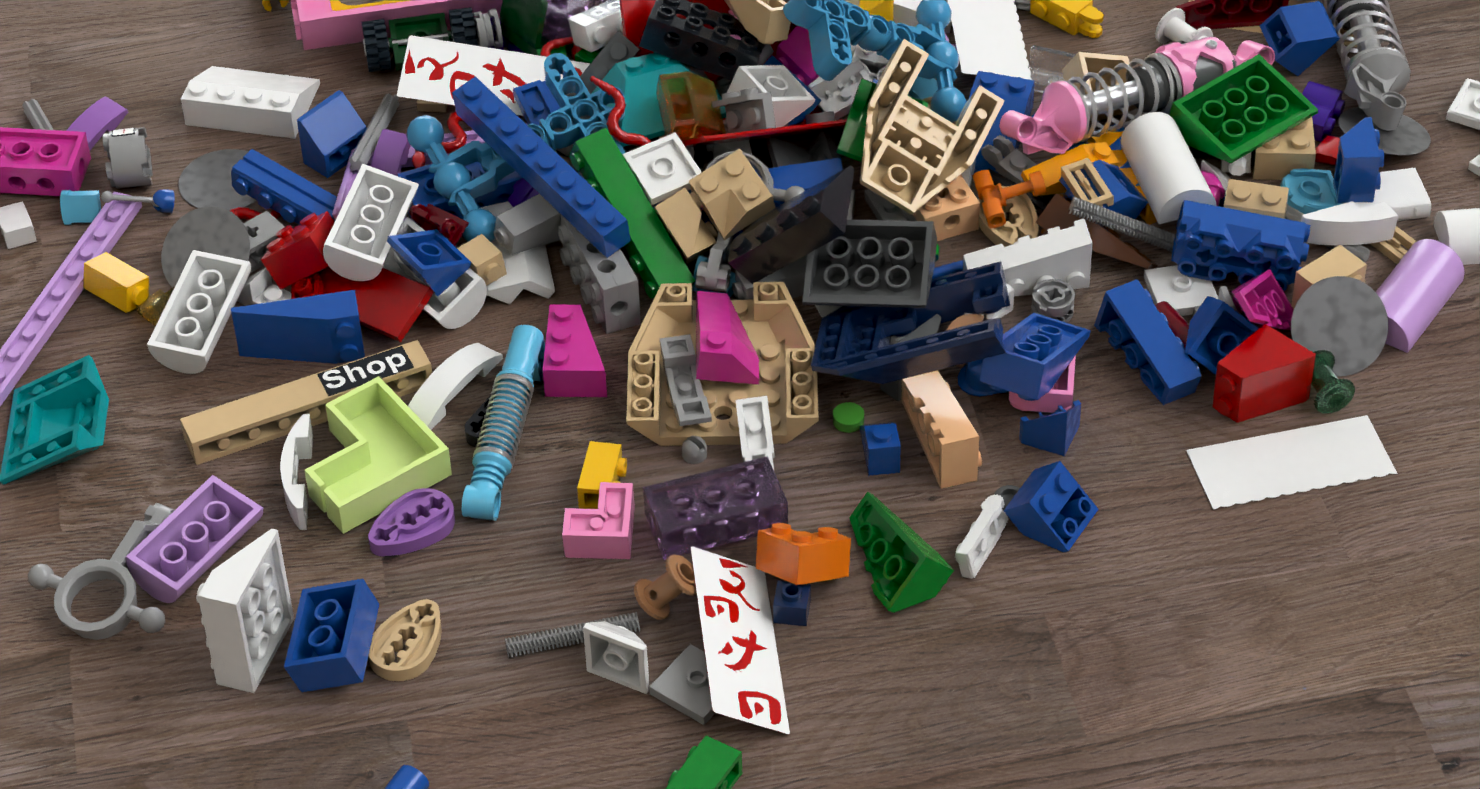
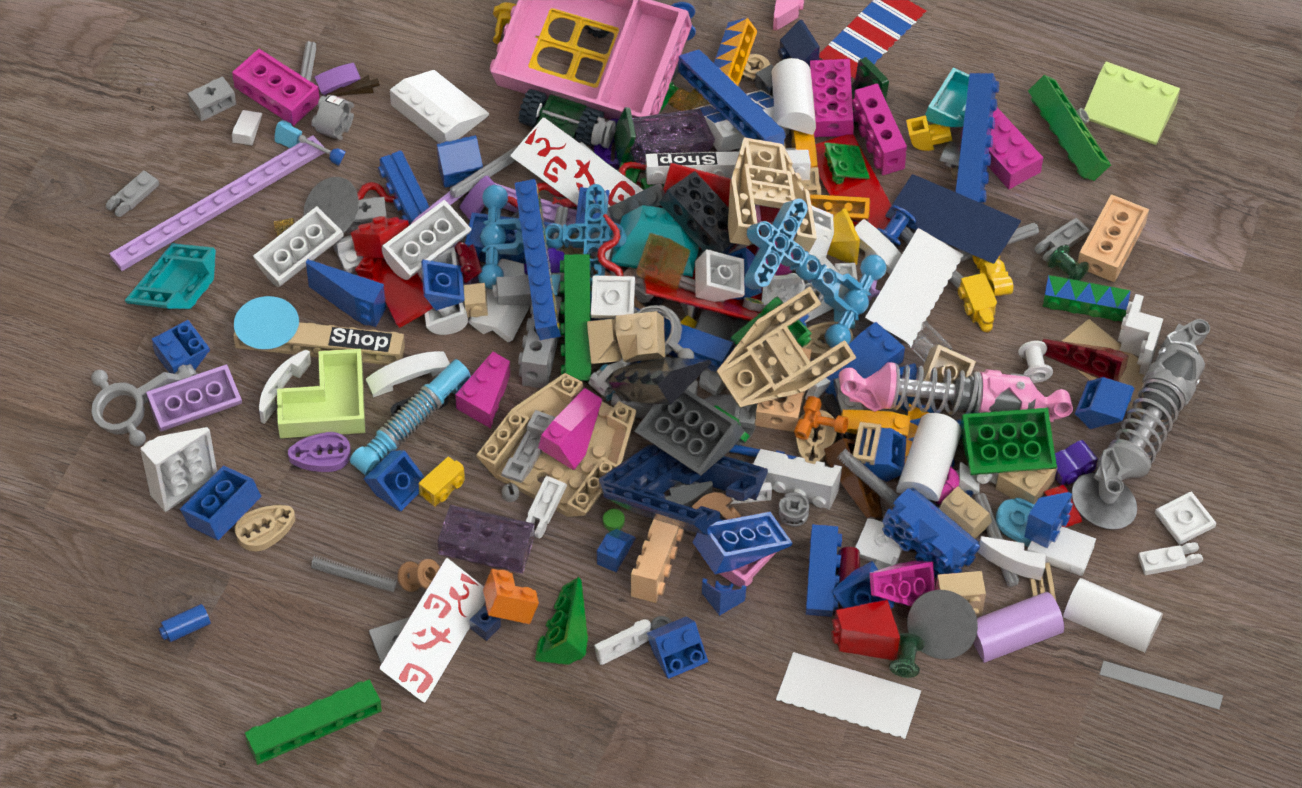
camera: 30 degrees right, 10 degrees up
(115, 282) = (271, 200): yellow brick -> none
(125, 492) = (179, 347): none -> blue slope
(134, 117) = (361, 86): none -> dark brown piece
(209, 181) = (379, 145): flat silver sticker -> none
(224, 409) = (266, 322): none -> medium azure sticker
(537, 500) = (395, 479): none -> blue slope
(601, 531) = (419, 518): bright pink panel -> none
(616, 655) = (364, 599): white slope -> none
(747, 111) = (693, 282): light grey bracket -> none

